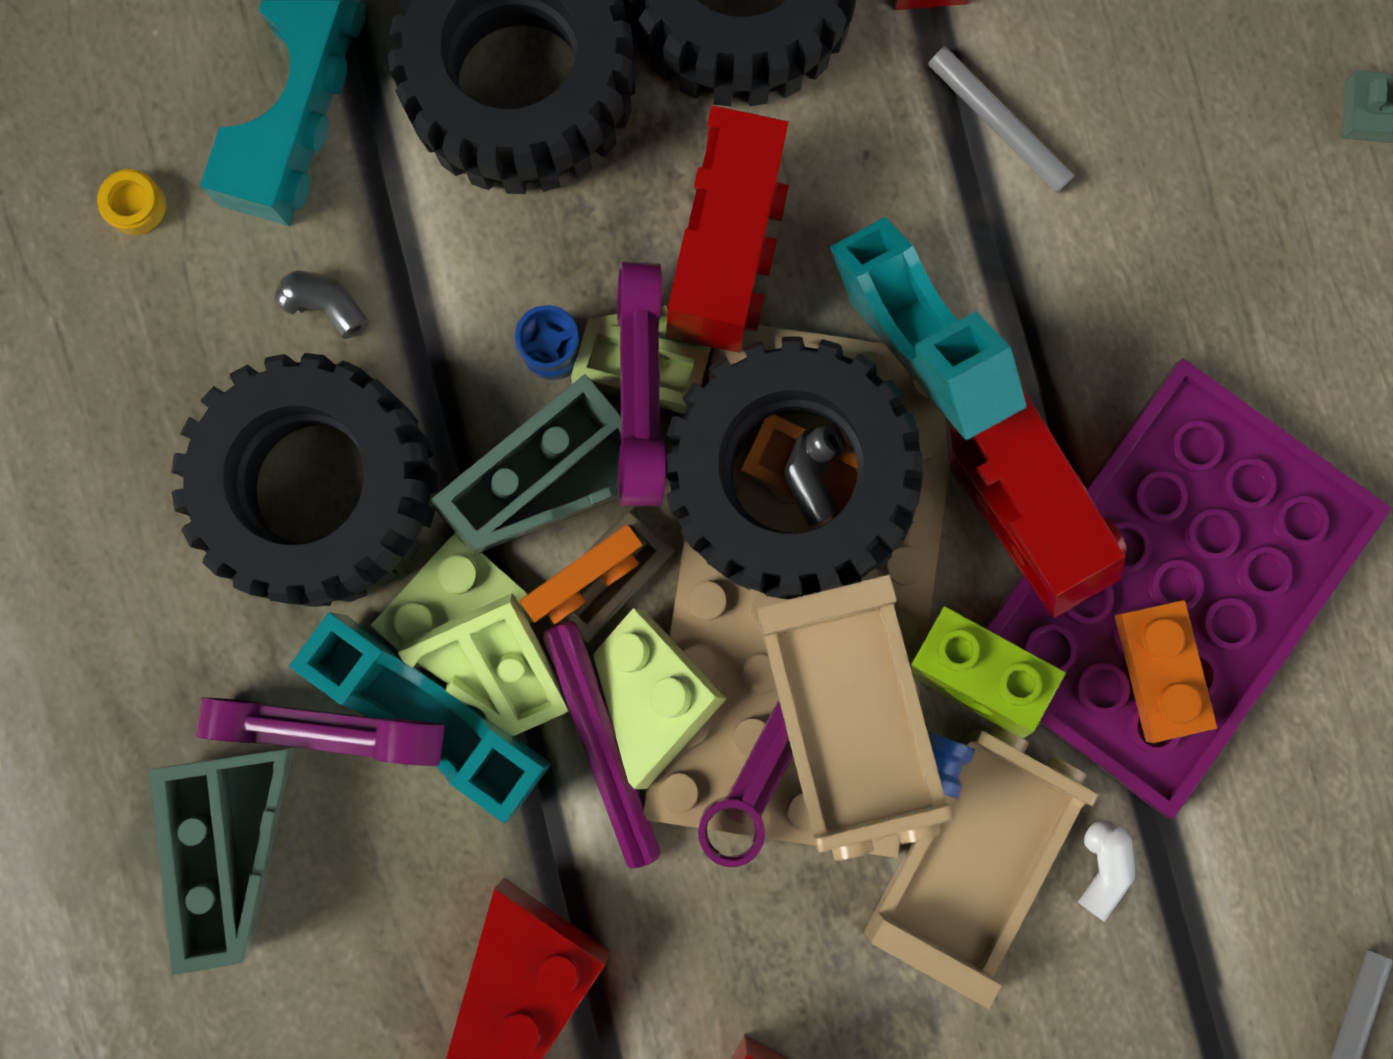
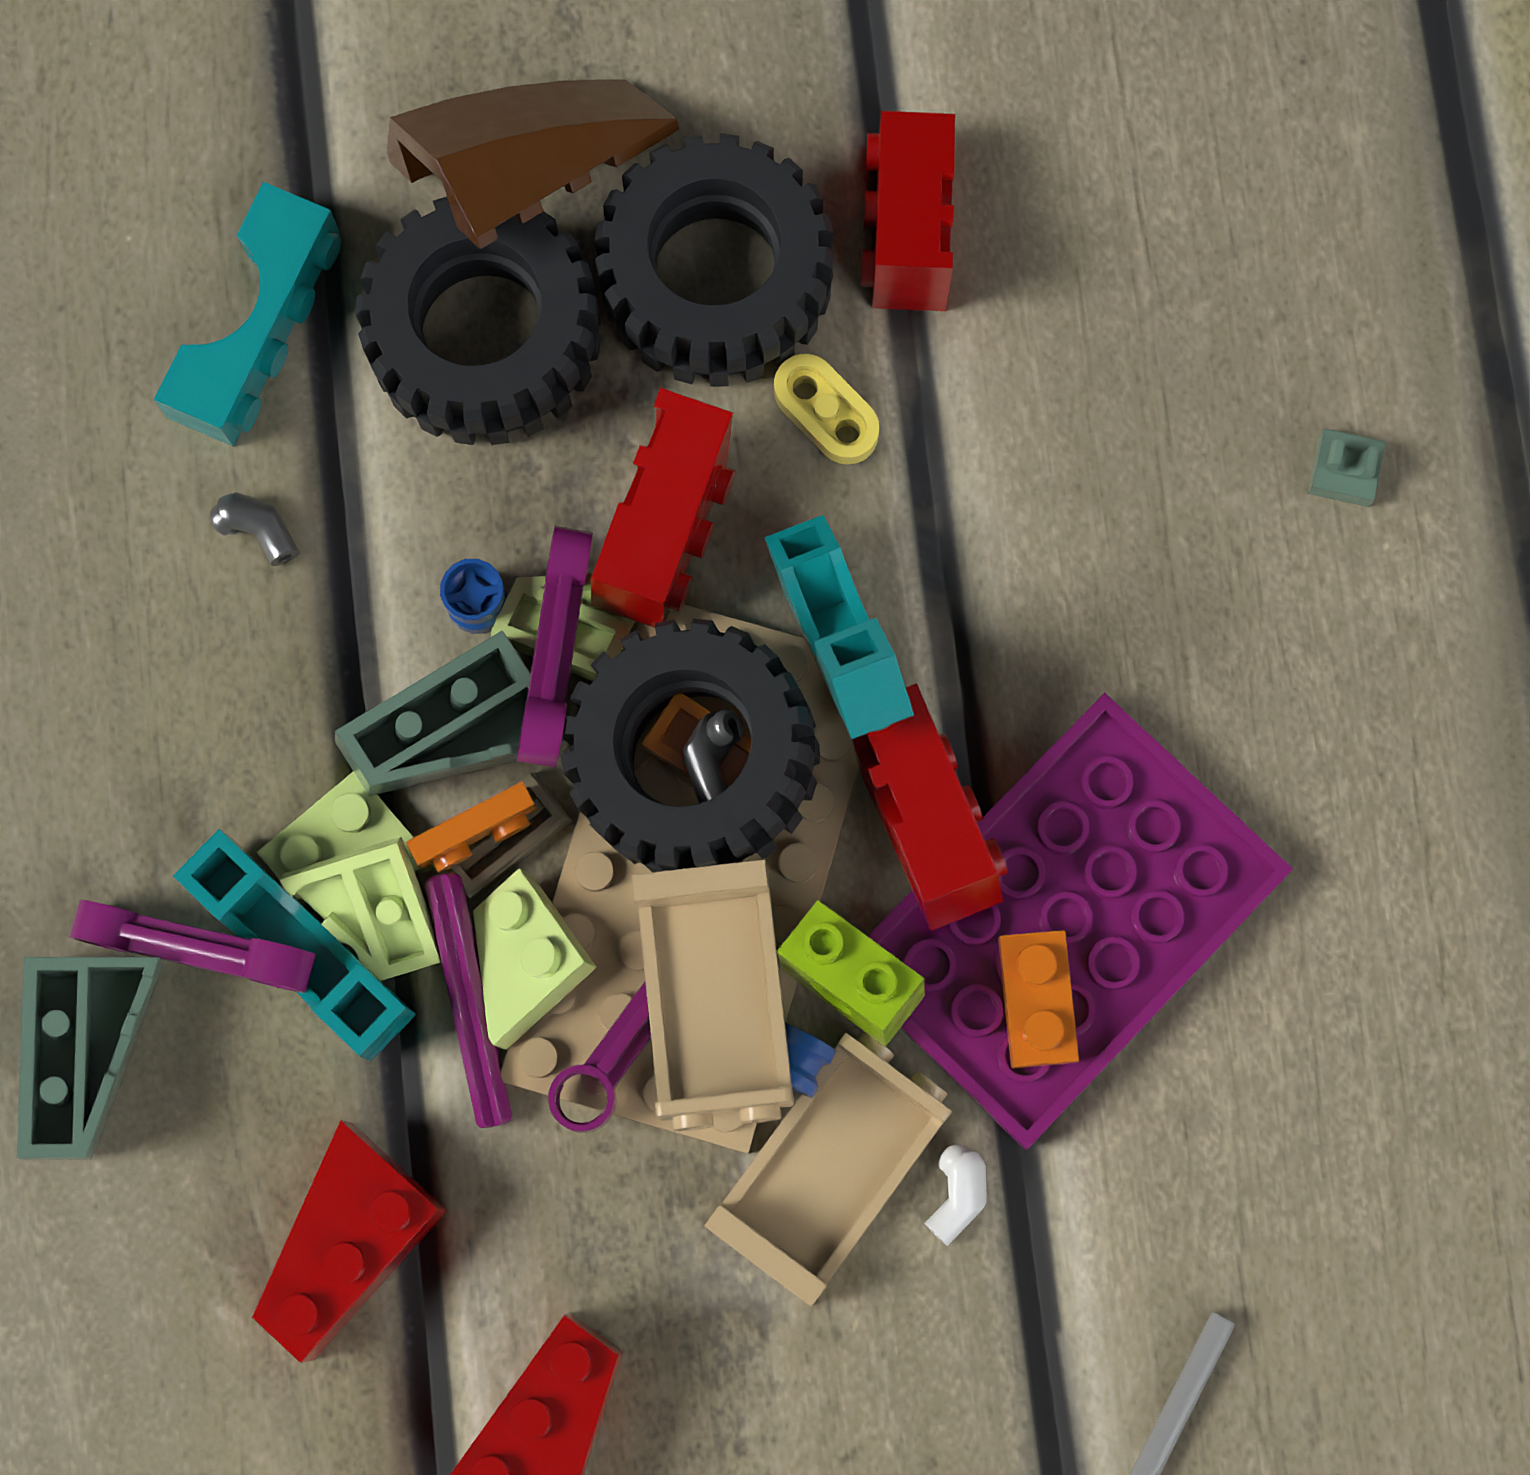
camera: 10 degrees right, 5 degrees down
(131, 202) = (81, 403): yellow tile -> none
(225, 466) = (153, 650): black tyre -> none
(872, 111) = (828, 410): none -> light yellow plate
(1000, 119) = (961, 432): light grey bar -> none

